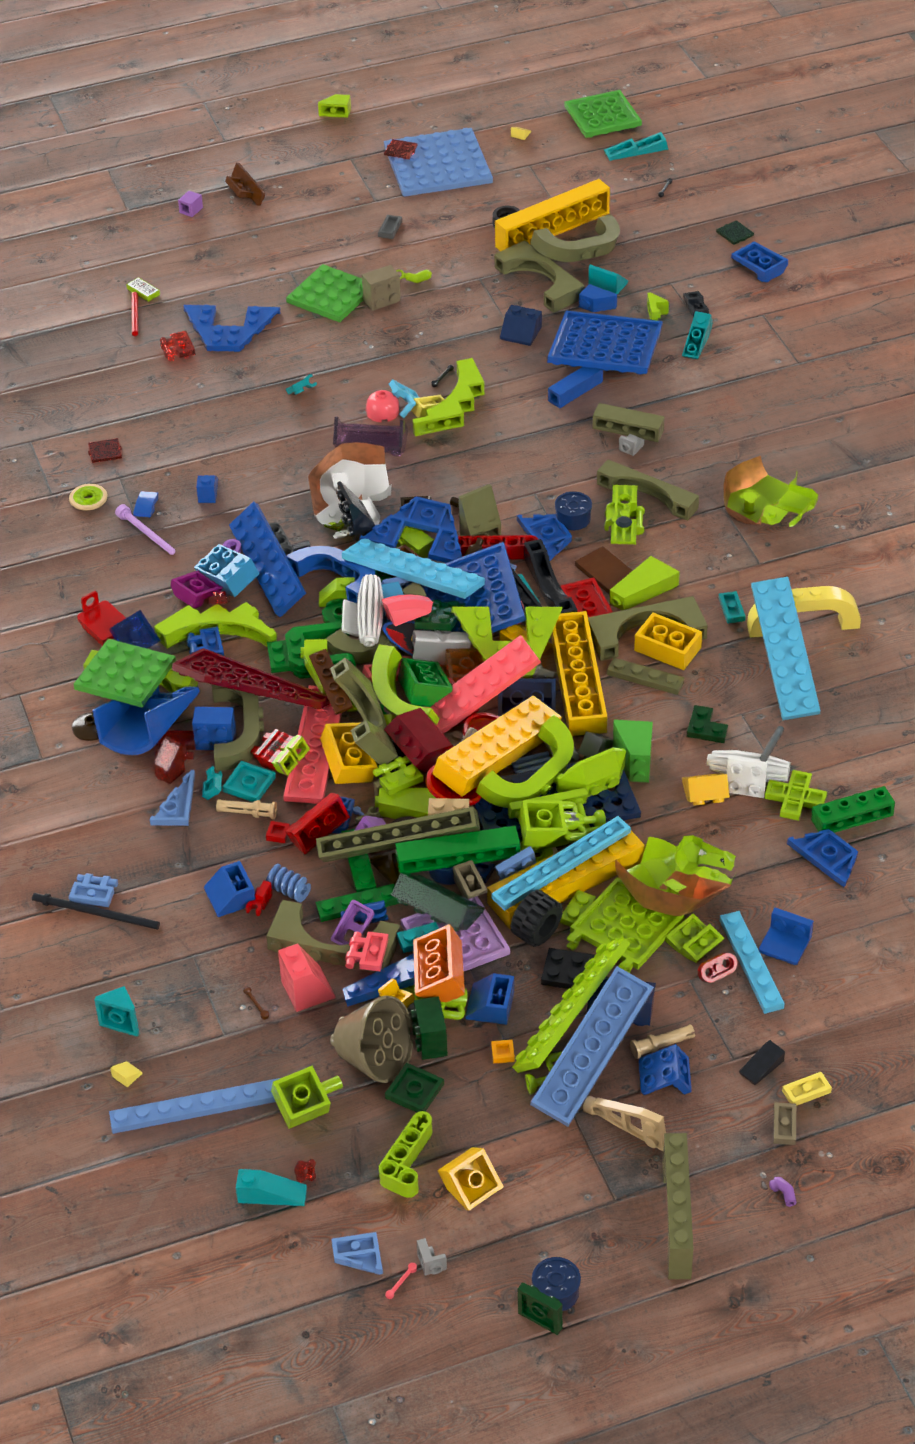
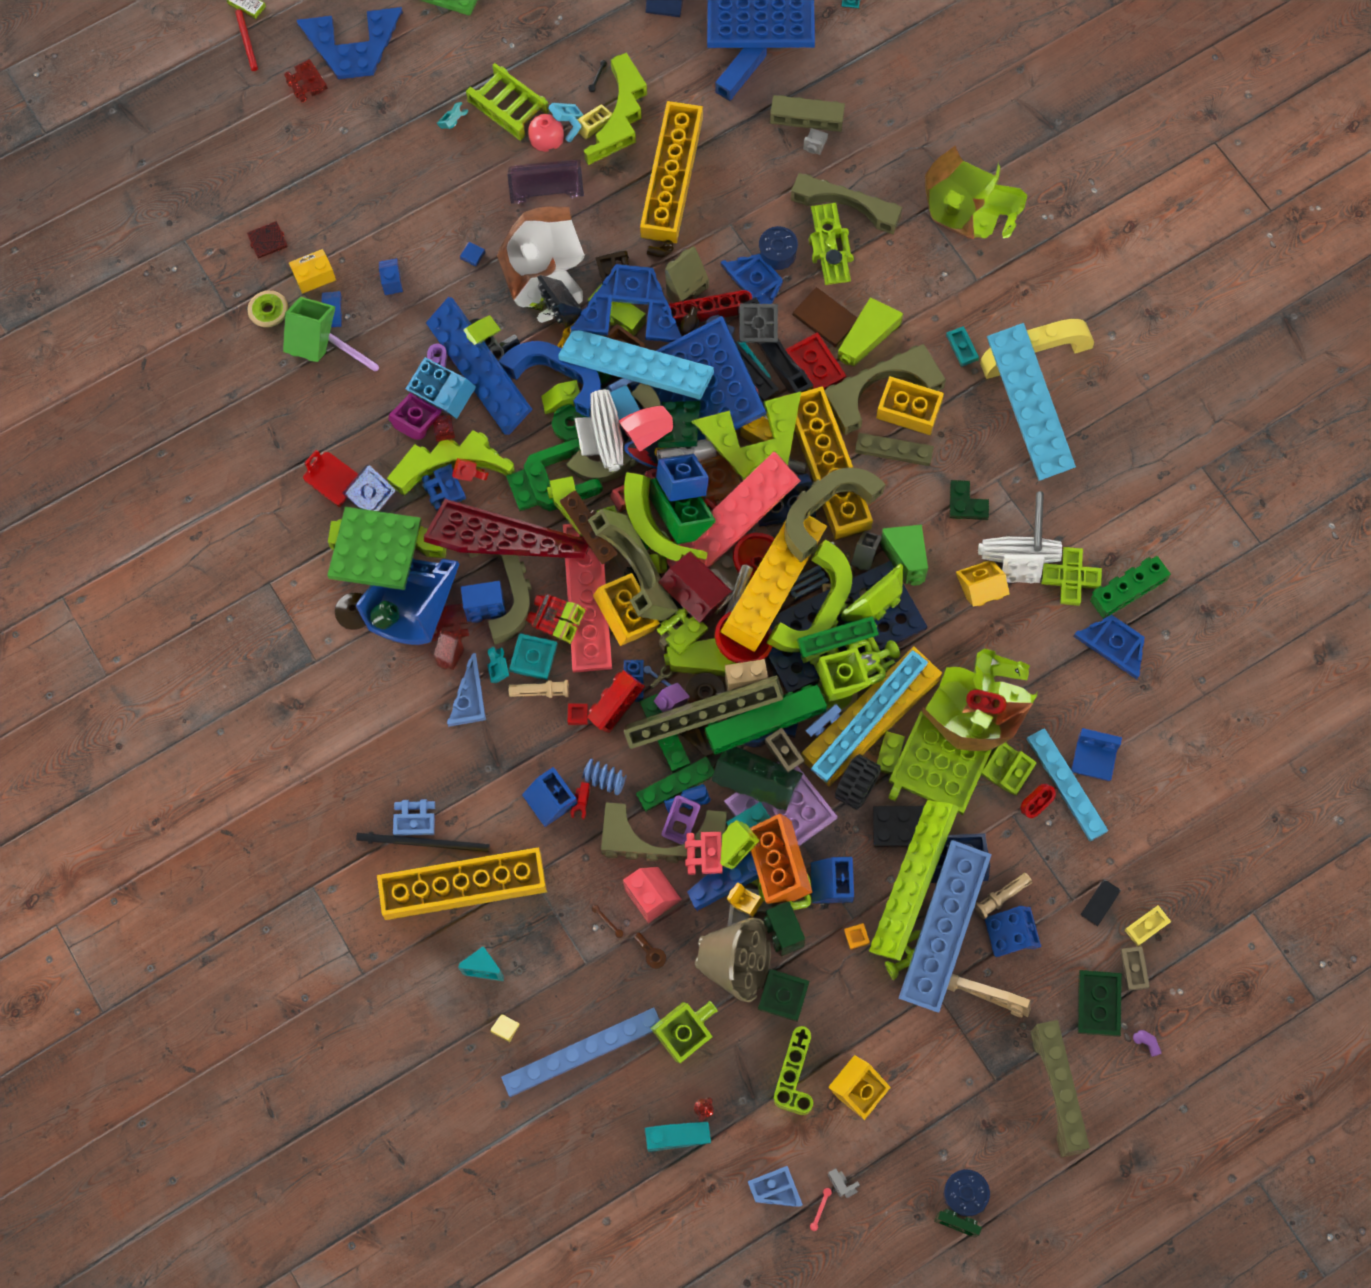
camera: 10 degrees left, 25 degrees up
(117, 725) = (384, 615): none -> dark green head
(118, 510) = (307, 328): none -> bright green slope
(121, 944) = (461, 883): none -> yellow brick
(138, 476) = (312, 271): none -> yellow slope
(230, 632) = (467, 470): none -> red plate
(276, 526) = (481, 330): none -> lime slope
(288, 483) = (472, 254): none -> blue tile
(293, 1038) = (655, 957): none -> reddish brown plate
(346, 391) = (503, 117): none -> lime fence
(400, 946) = (736, 844): none -> lime slope
(430, 654) = (682, 477): none -> blue brick
(489, 444) = (671, 172): none -> yellow brick
(537, 556) = (758, 323): none -> dark grey piece
(545, 790) = (837, 637): none -> green plate
(562, 682) = (846, 479): none -> olive arch
(685, 873) = (987, 701): none -> red plate
(740, 1147) = (1099, 1003): none -> dark green plate

